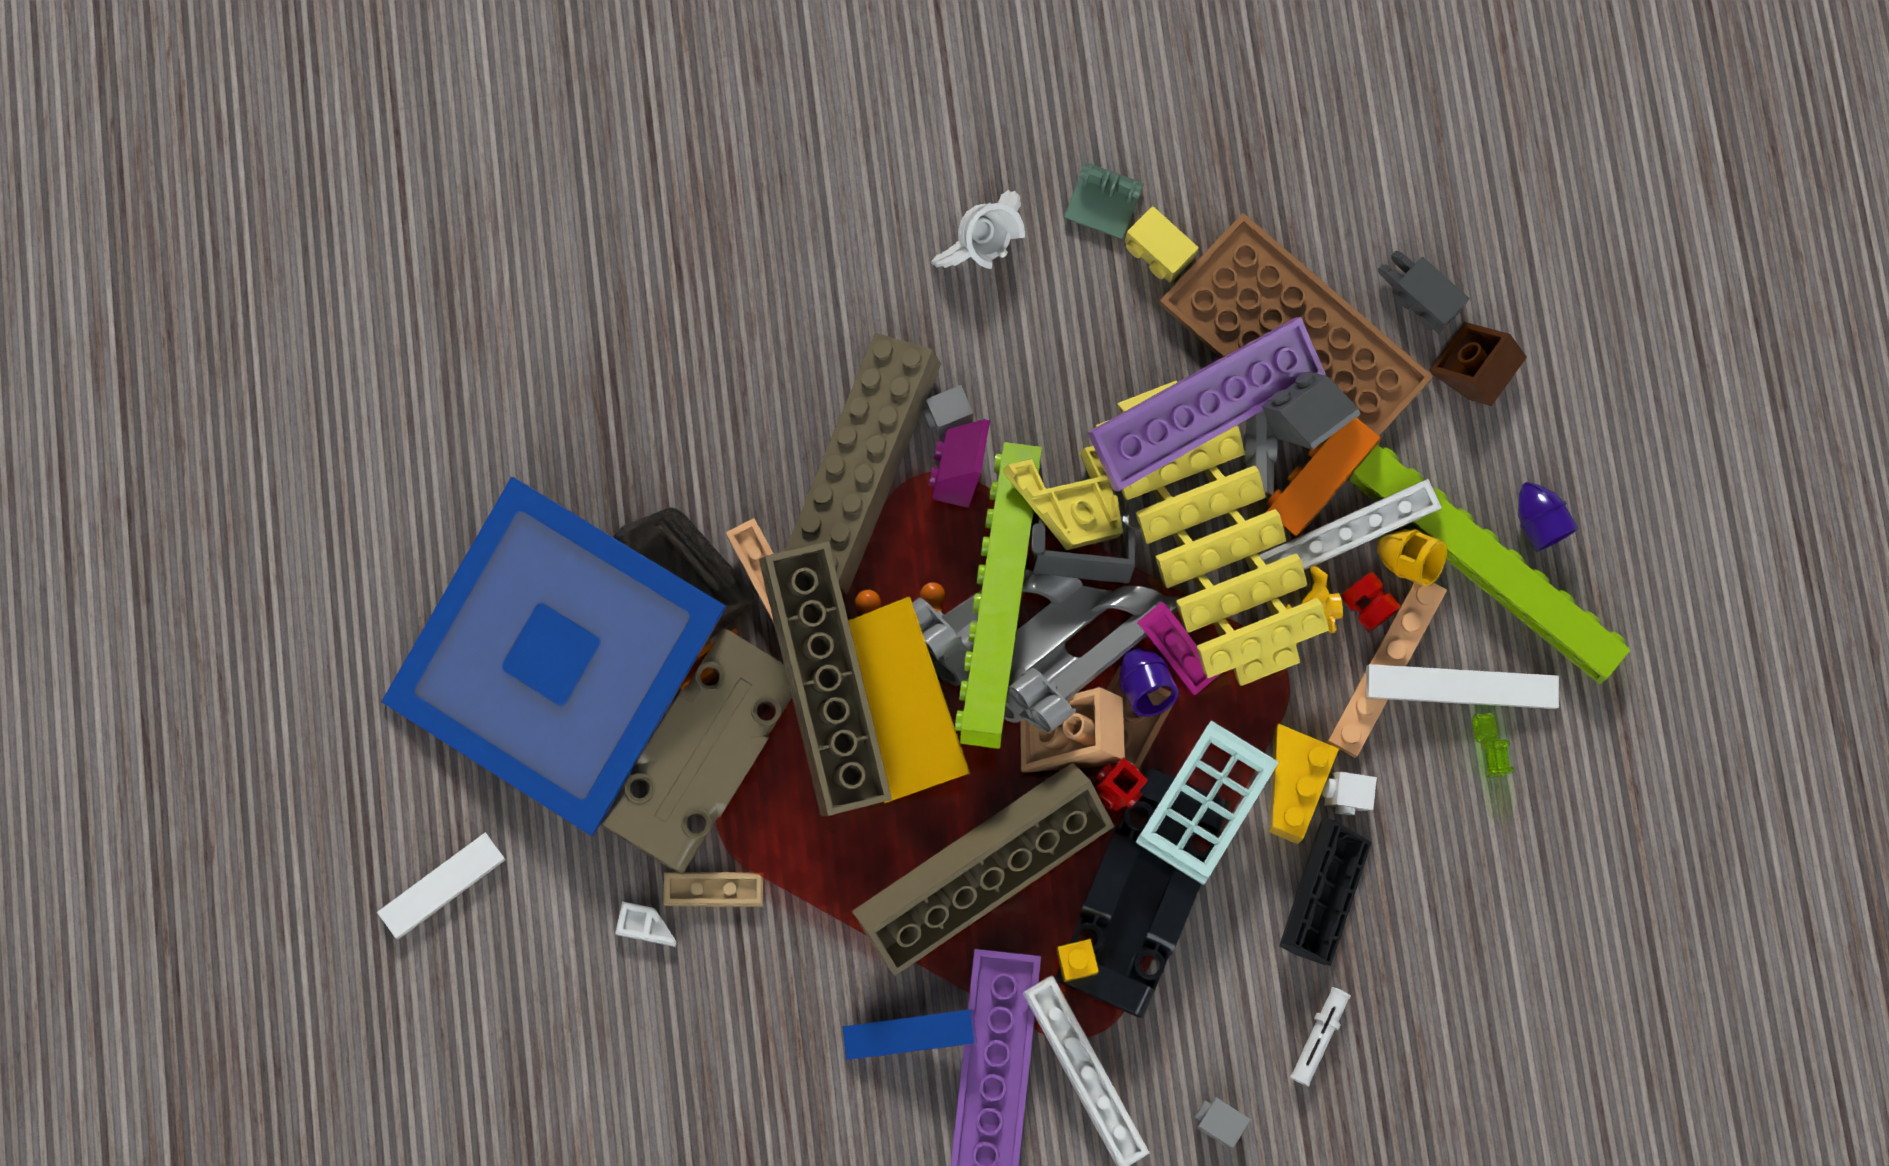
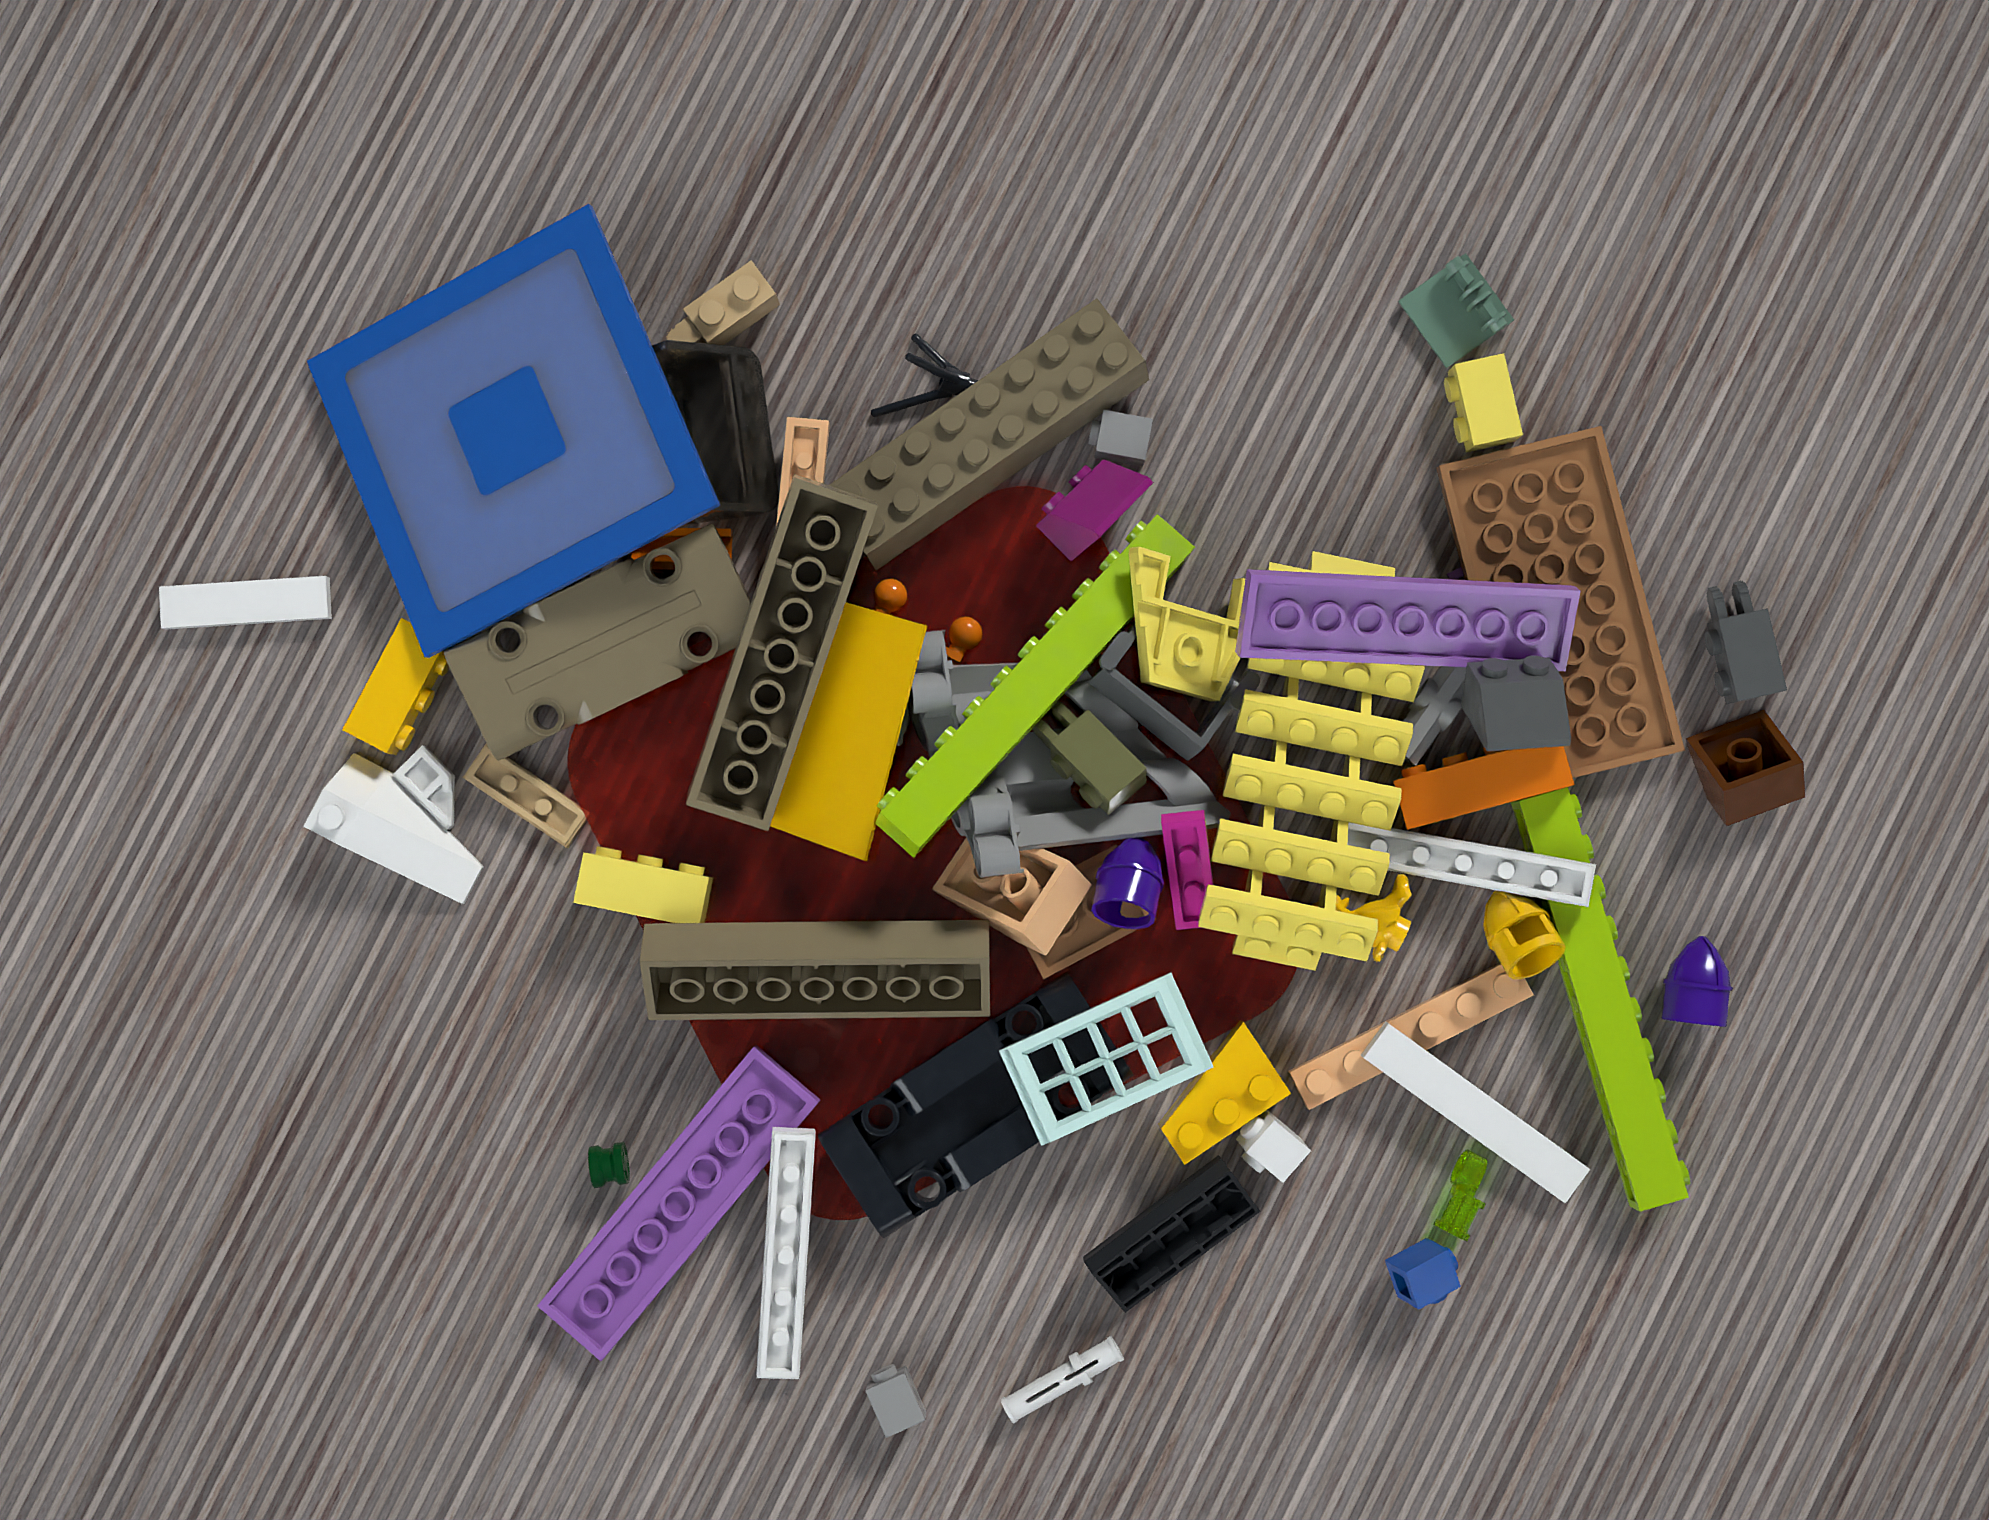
camera: 40 degrees right, 10 degrees up
(583, 875) = (396, 692): none -> yellow brick
(631, 968) = (385, 823): none -> white wedge
(640, 488) = (727, 308): none -> tan hinge
(814, 447) = (951, 379): none -> black plant
(831, 893) = (643, 887): none -> light yellow brick
(910, 1034) = (629, 1090): blue slope -> none
(930, 1094) = (608, 1165): none -> dark green wheel
(985, 232) = (1296, 263): white helmet -> none
(1068, 618) = (1092, 759): none -> olive hinge
(1077, 960) = (847, 1137): yellow brick -> none
(1119, 784) = (1031, 988): red brick -> none
(1382, 604) = (1450, 966): red wheel -> none
(1501, 810) = (1423, 1273): none -> blue brick

